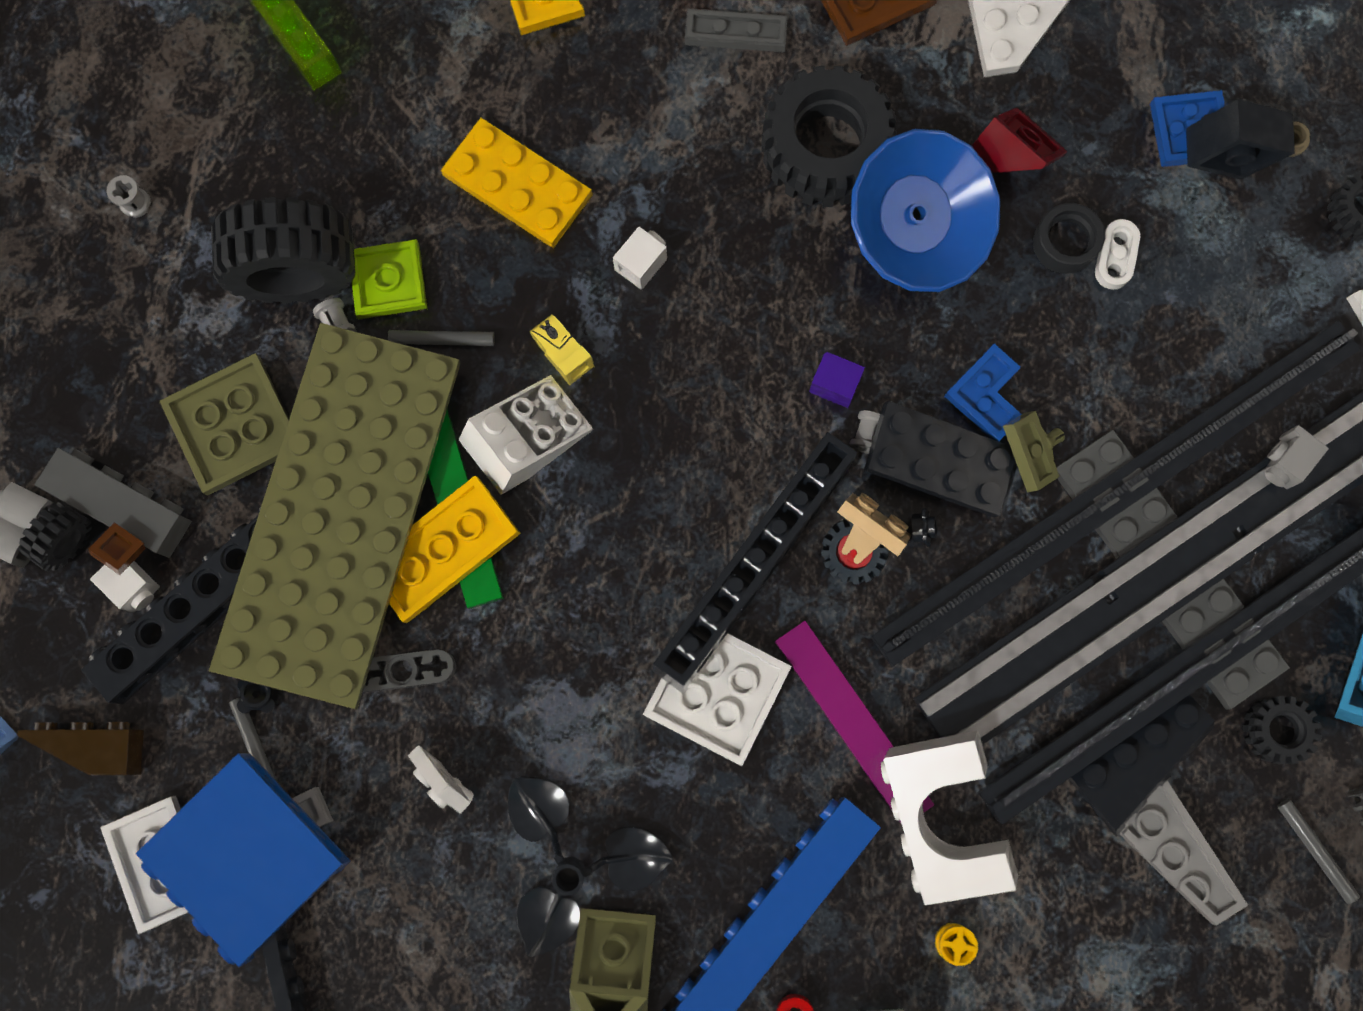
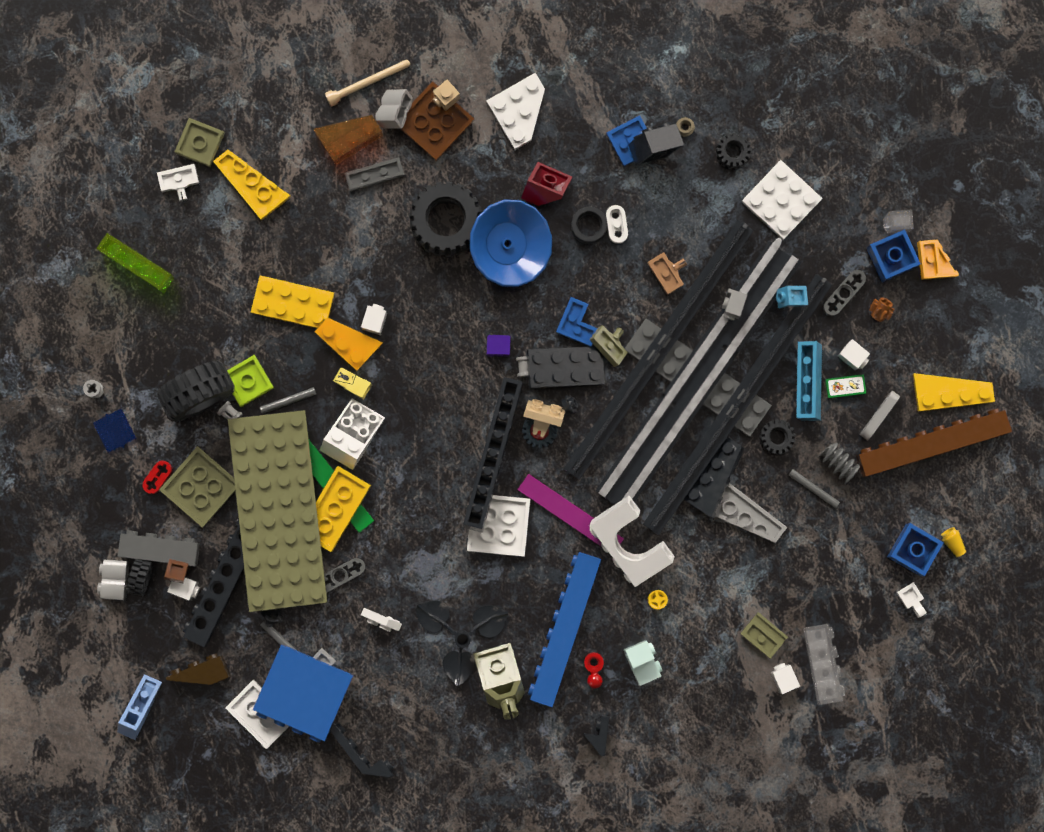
camera: 30 degrees left, 5 degrees up
(136, 279) = (114, 430): none -> clear blue piece
(168, 379) = (154, 474): none -> red beam
(581, 278) = (347, 342): none -> light orange wing
(1178, 366) = (667, 272): none -> medium nougat plate

